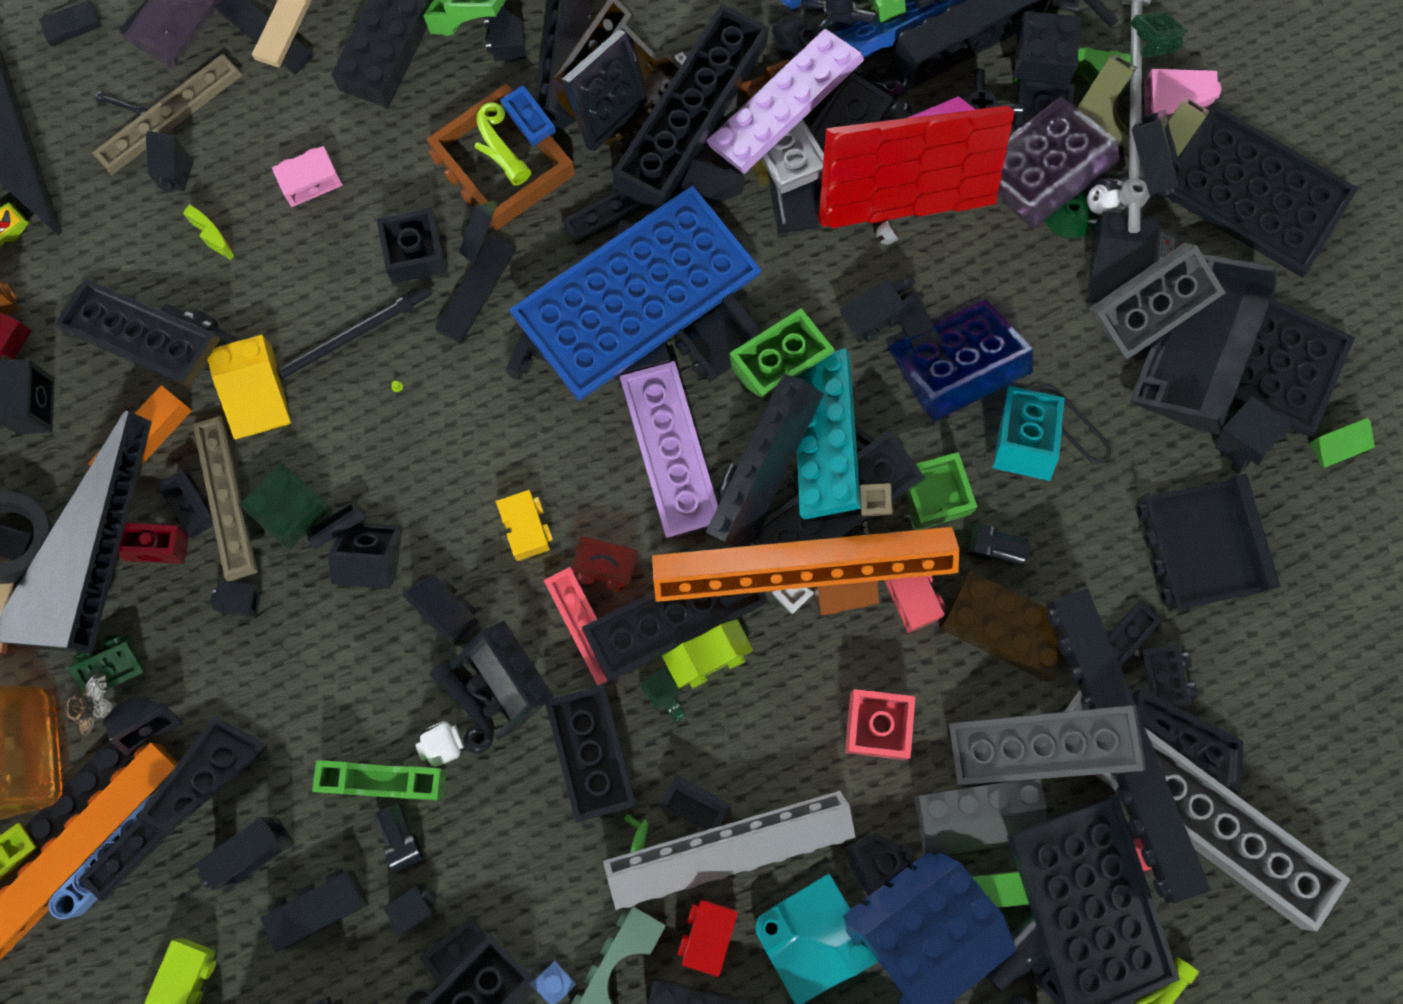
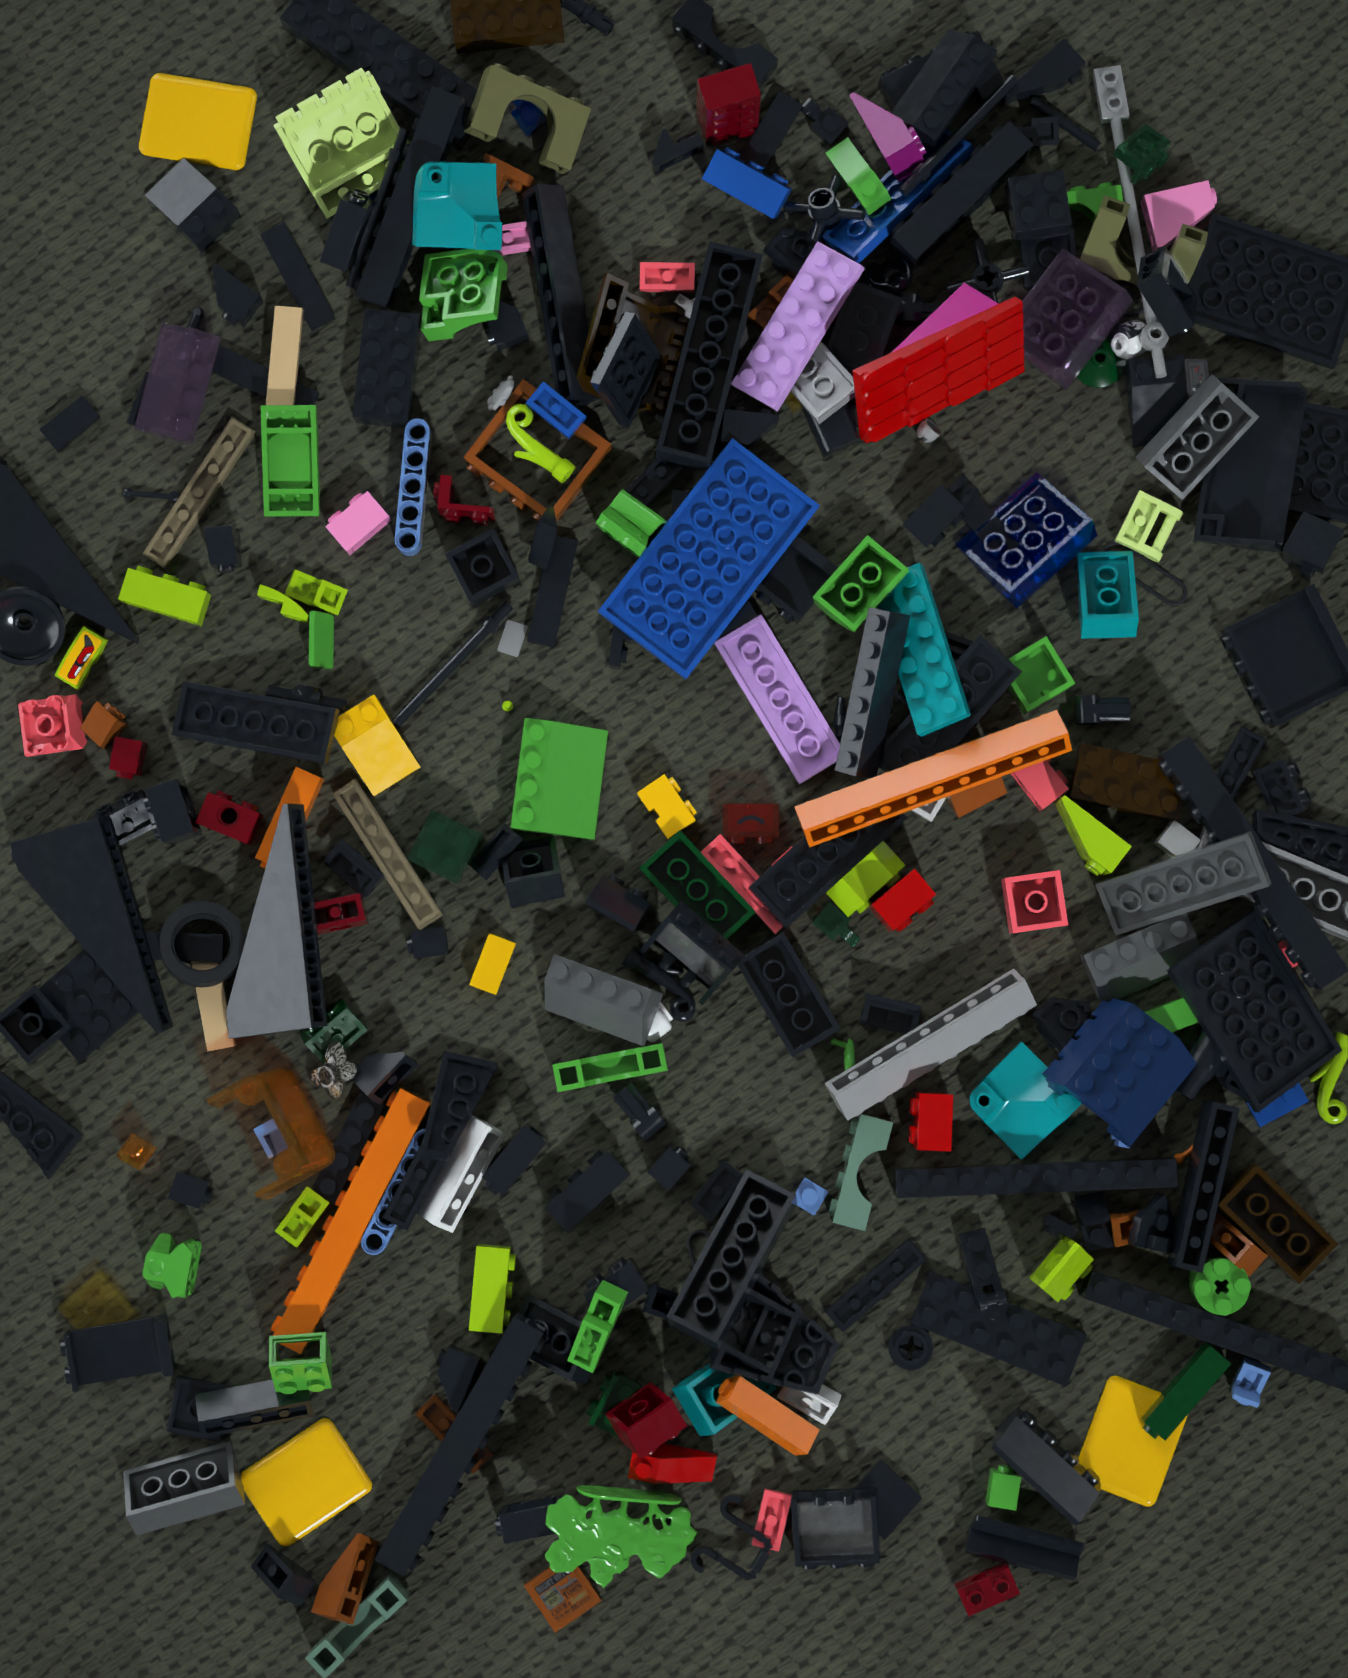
camera: 10 degrees left, 10 degrees up
(69, 408) = (213, 813): none -> dark red brick
(97, 195) = (165, 595): none -> lime brick
(175, 858) = (461, 1174): none -> white brick
(232, 275) = (321, 640): none -> bright green slope
(245, 230) = (316, 592): none -> lime slope
(262, 102) = (290, 460): none -> bright green slope
(295, 638) = (492, 964): none -> yellow slope
(370, 145) = (413, 474): none -> medium blue beam
(391, 705) = (600, 1000): none -> dark grey slope
(403, 185) = (455, 513): none -> dark red bracket
(422, 469) = (559, 779): none -> bright green slope
(423, 324) = (512, 638): none -> light grey sticker
(482, 93) = (501, 394): none -> light grey piece
(522, 600) = (689, 877): none -> dark green brick
(567, 236) = (630, 523): none -> bright green piece
(672, 33) = (667, 277): none -> coral plate
(740, 685) = (902, 901): none -> red brick
(876, 499) = (983, 704): dark tan plate -> none
(957, 673) = (1093, 840): none -> lime slope
(1046, 698) = (1176, 840): none -> white panel
(1078, 372) = (1140, 522): none -> yellowish green plate

